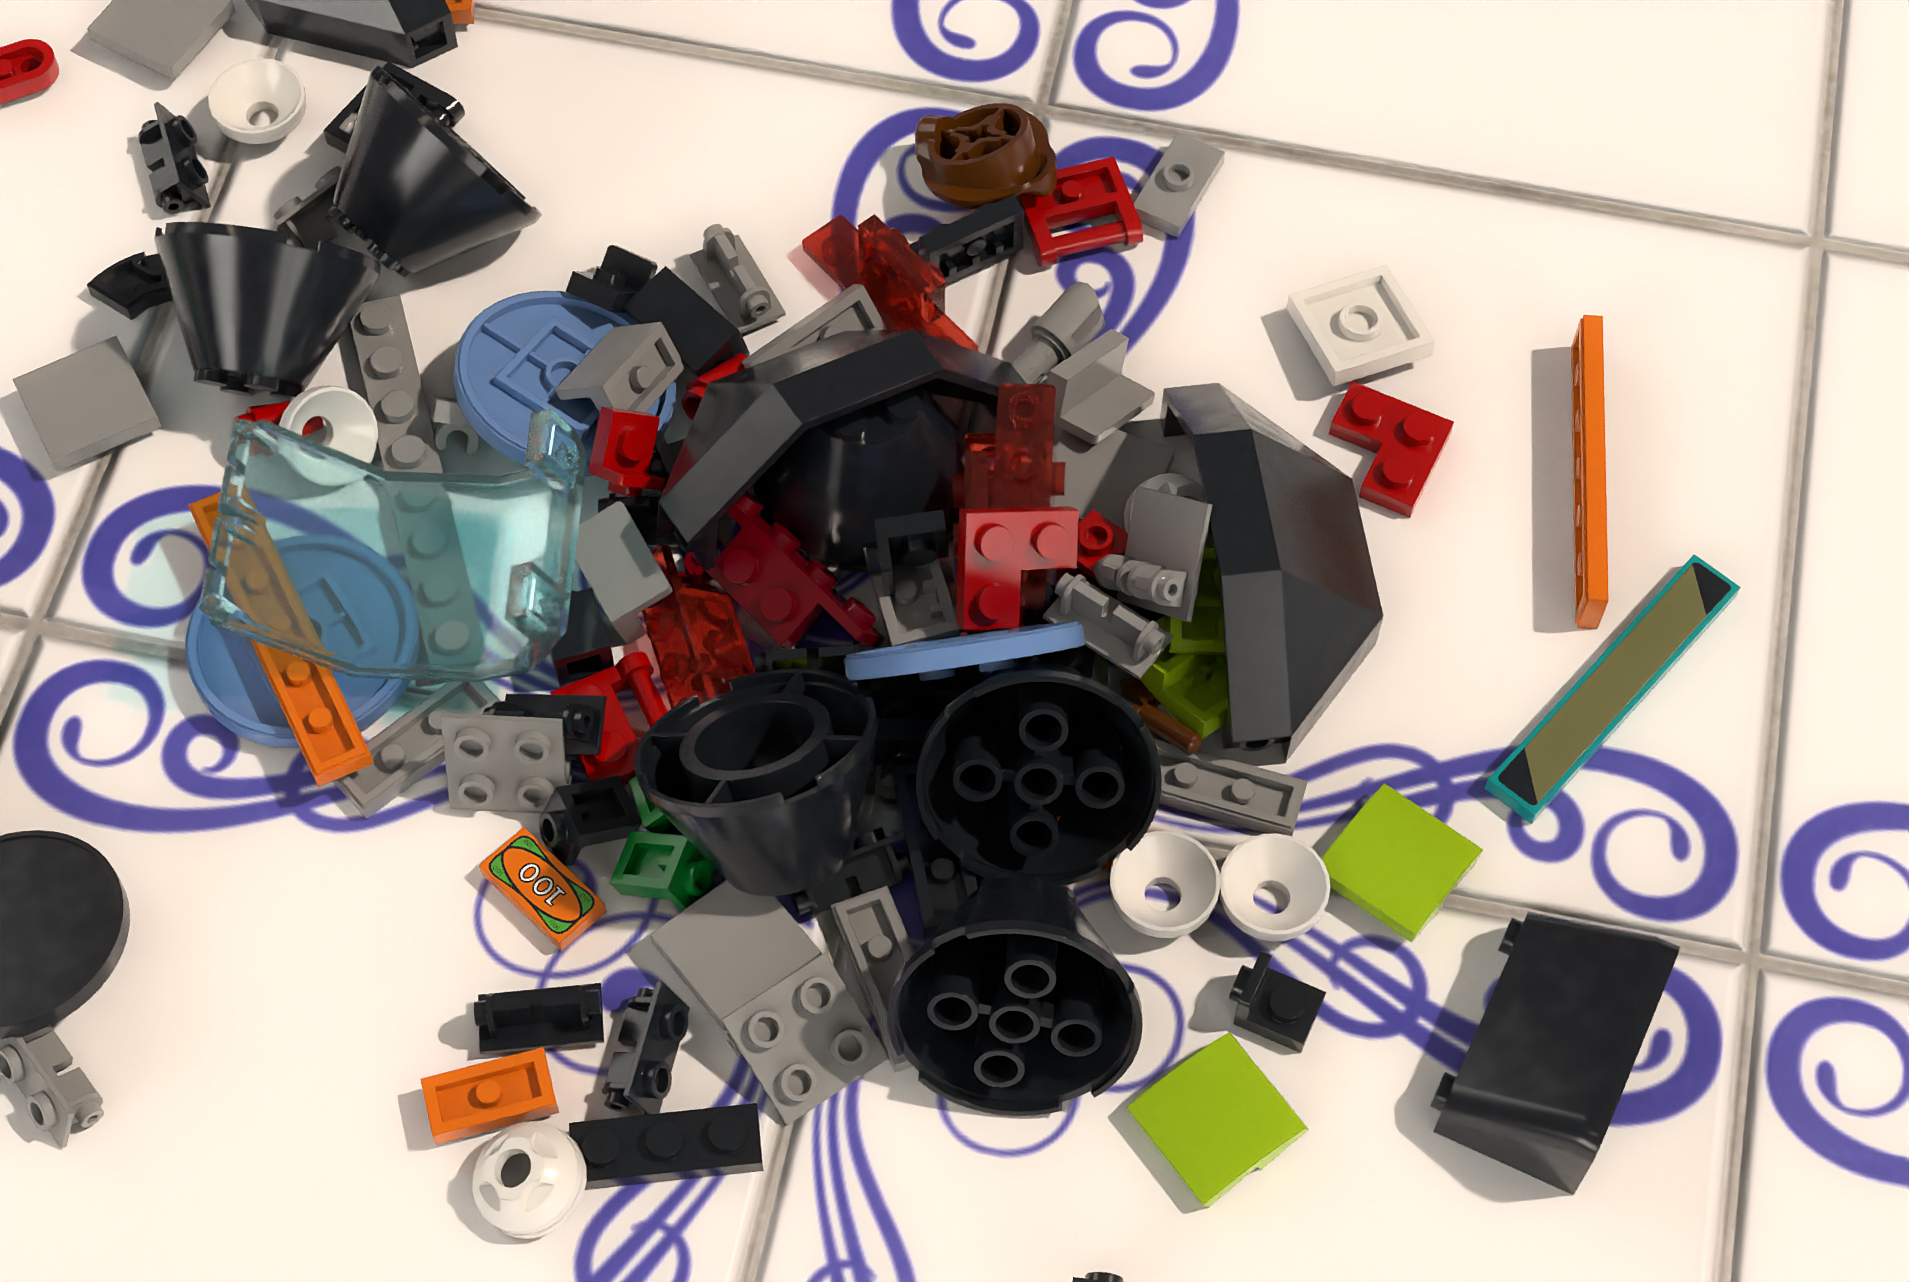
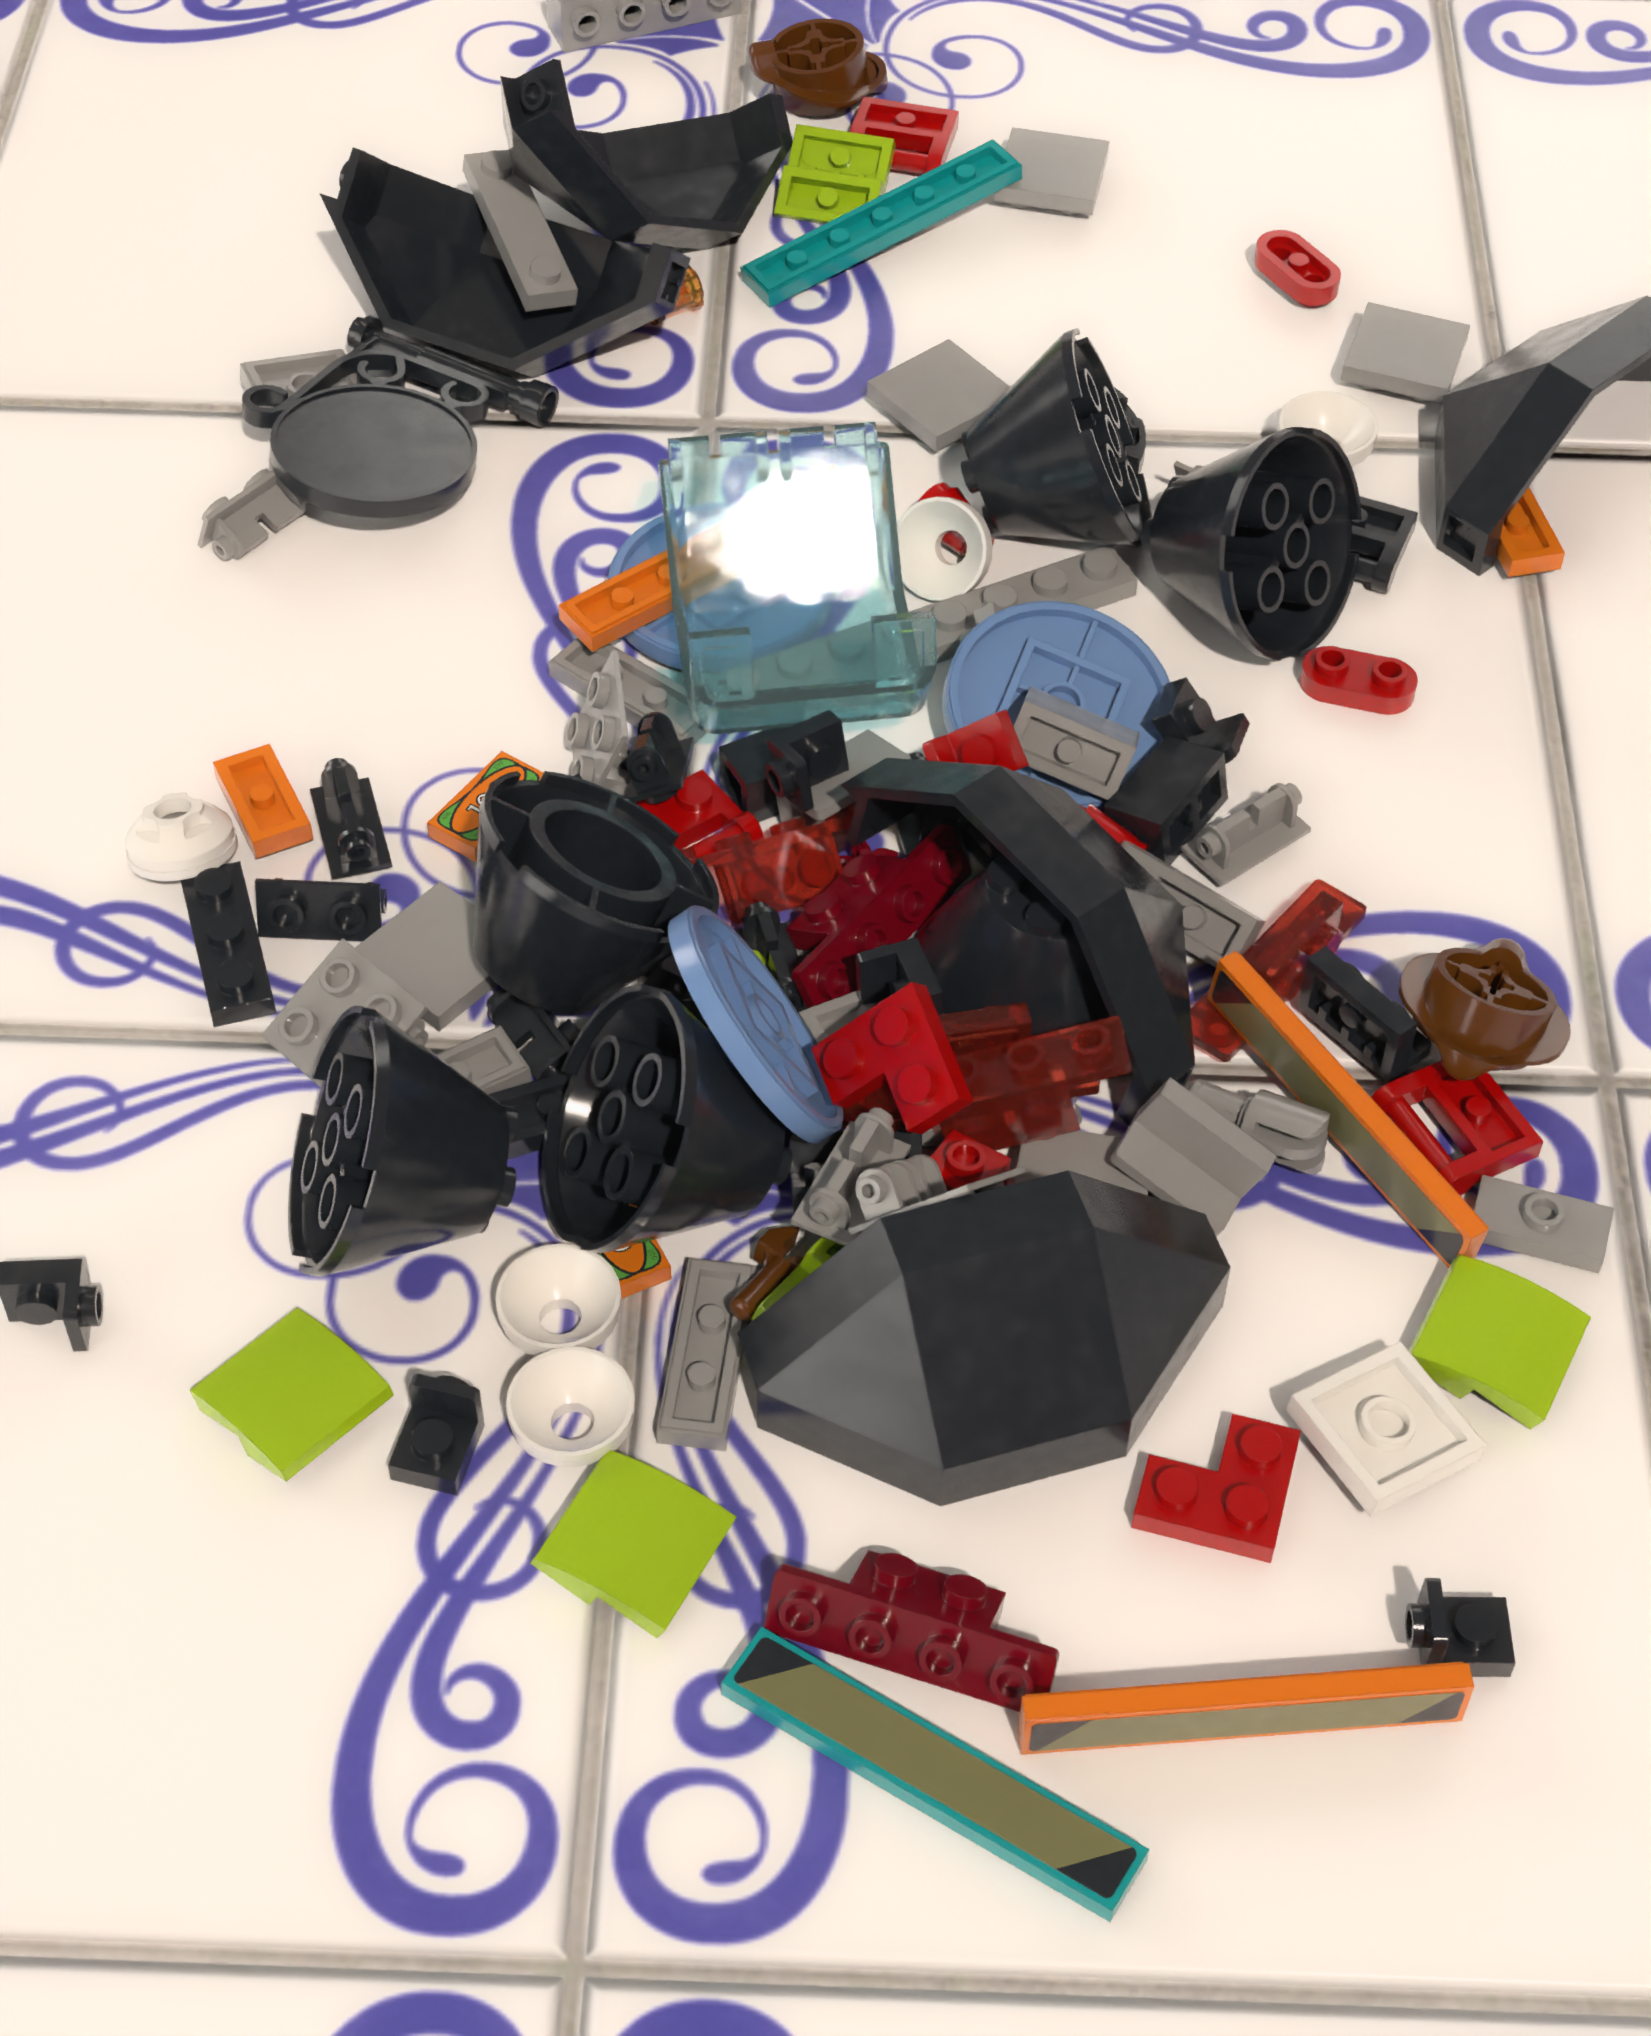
camera: 80 degrees right, 10 degrees down
(171, 144) = (1241, 397): black hinge -> none
(571, 156) = (1358, 680): none -> red plate
(618, 587) = (806, 757): none -> black bracket
(1044, 280) = (1355, 1119): none -> tile
(1284, 236) = (1499, 1338): none -> lime slope
(1493, 670) = (913, 1625): none -> dark red bracket
(1532, 325) = (1461, 1631): none -> black bracket
(1555, 1046) = (409, 1711): black windscreen -> none

